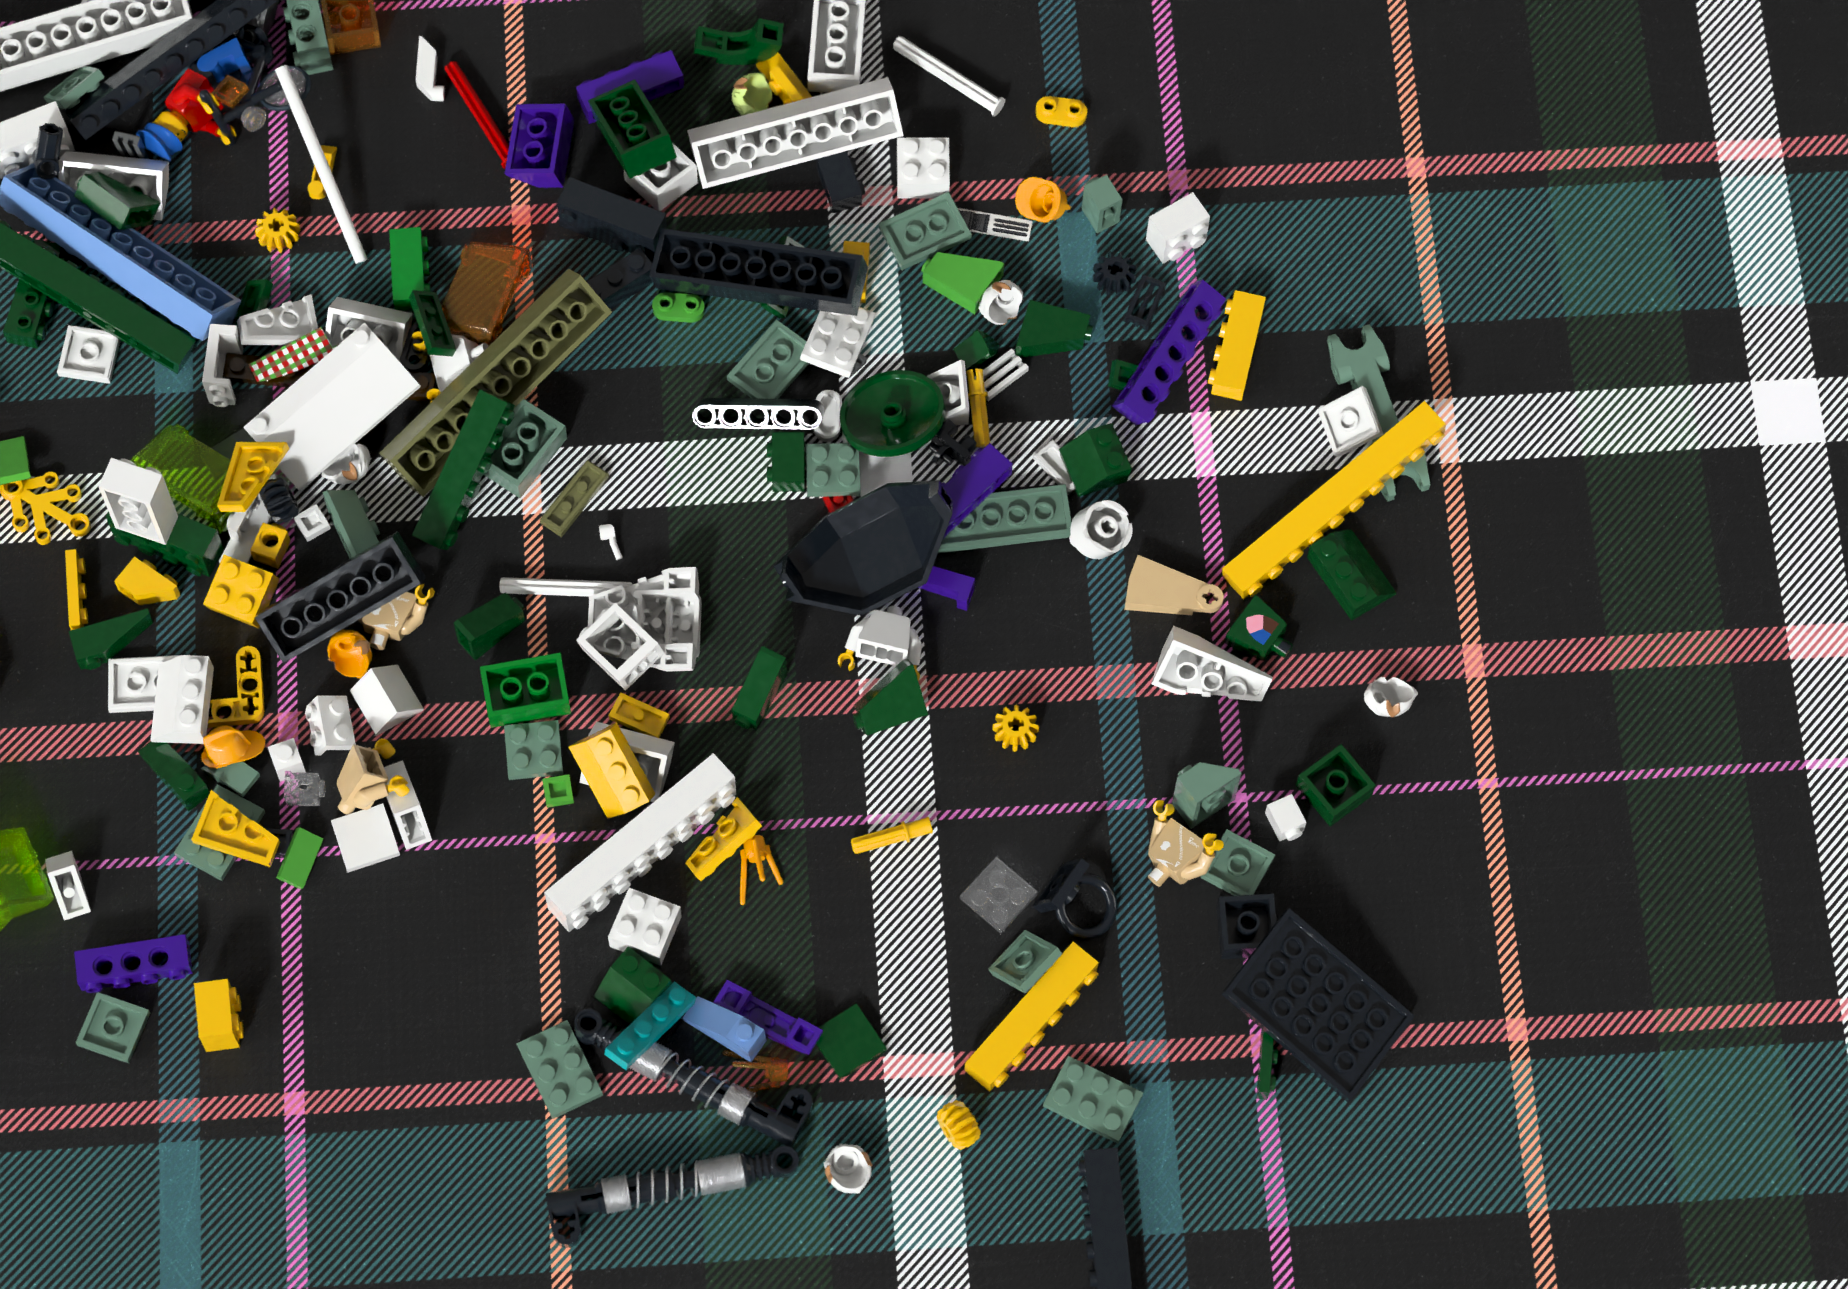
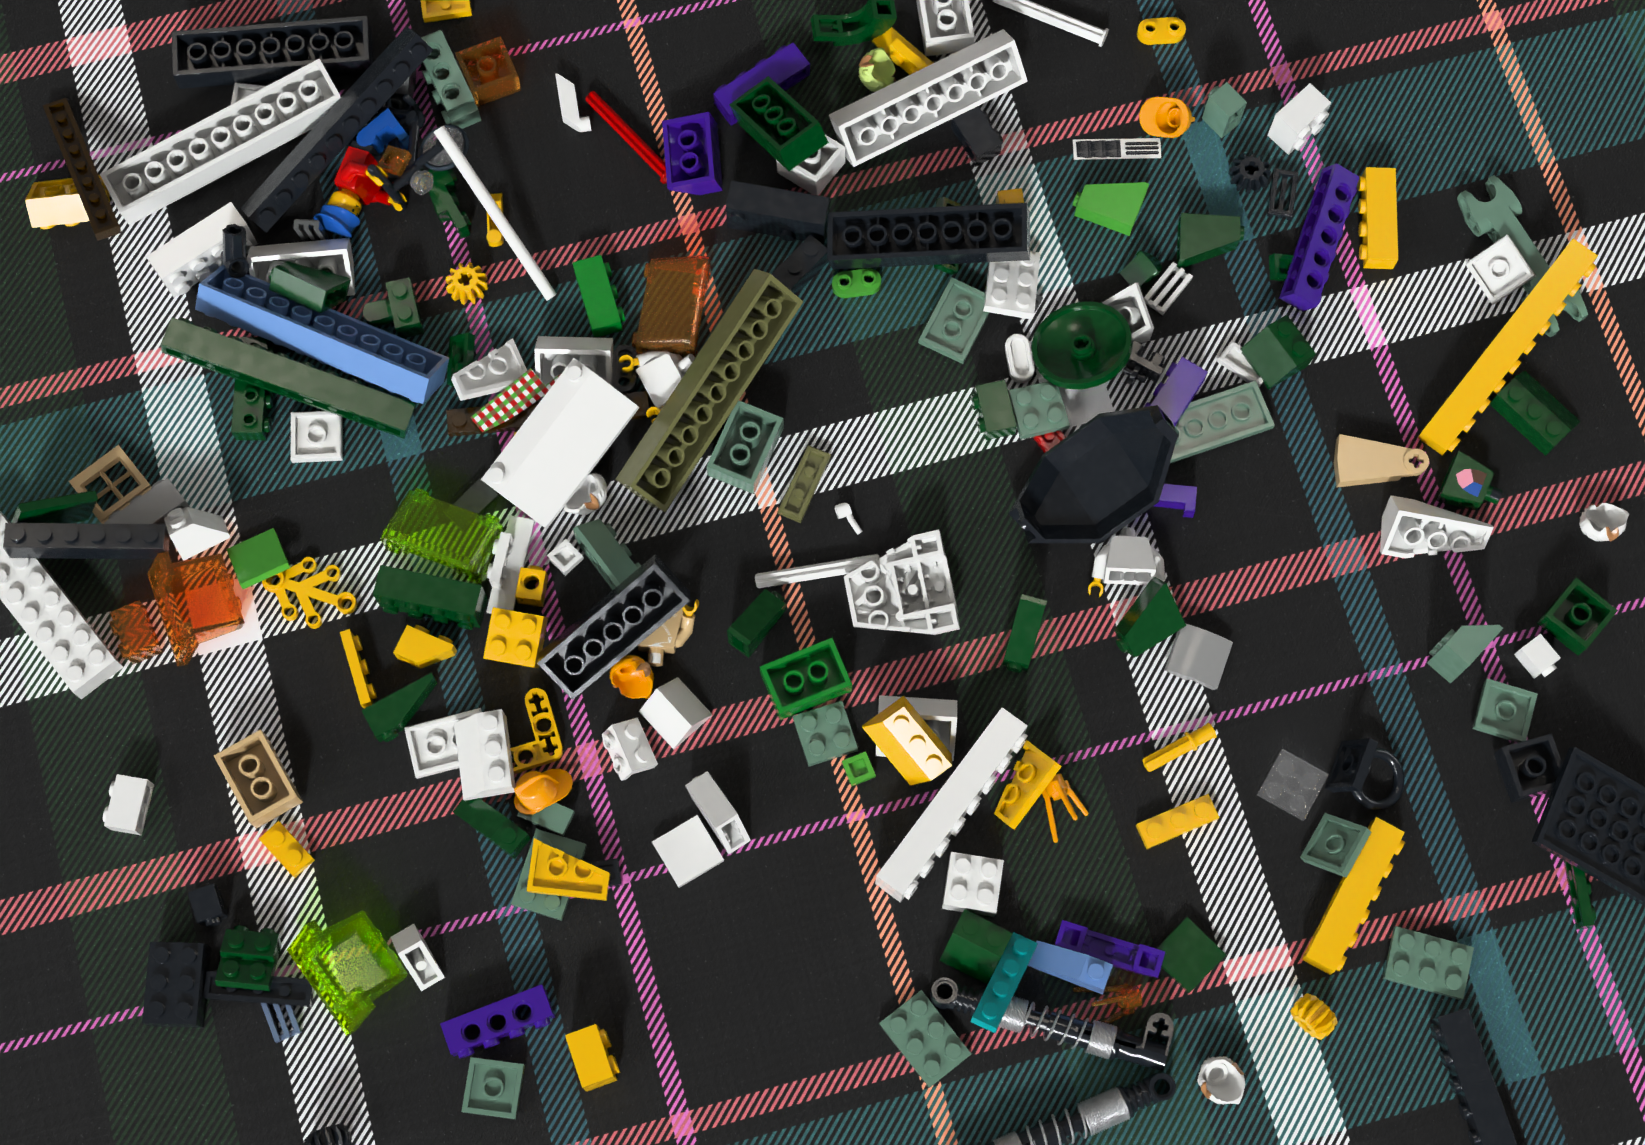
camera: 10 degrees left, 5 degrees up
(70, 90) = (244, 183): sand green plate -> none
(138, 500) = (404, 576): white brick -> none
(203, 242) = (399, 309): none -> dark green brick
(221, 340) = (442, 399): white panel -> none
(248, 472) = (497, 524): yellow wing -> none
(275, 142) = (446, 202): none -> dark green slope
(279, 500) = (531, 543): black gear -> none
(286, 758) = (596, 791): white brick -> none
(299, 858) = (631, 884): bright green tile -> none
(303, 797) = (611, 823): clear brick -> none
(365, 778) = (675, 796): tan torso -> none
(432, 323) = (636, 345): dark green plate -> none
(464, 470) = (700, 480): dark green brick -> none
(637, 663) = (907, 634): white window -> none
(638, 716) = (916, 681): yellow plate -> none
(747, 419) = (970, 374): beam -> none
(871, 908) = (1177, 821): none -> yellow plate
(922, 167) = (1050, 108): white brick -> none
(925, 231) = (1066, 166): sand green plate -> none
(935, 748) = (1199, 656): none -> light grey slope
(978, 407) = (1160, 329): yellow axle -> none
(1001, 302) = (1154, 220): white hair -> none
(1005, 731) = (1273, 613): yellow gear -> none
(1100, 529) = (1301, 417): white brick -> none
(1177, 850) = (1450, 709): tan torso -> none

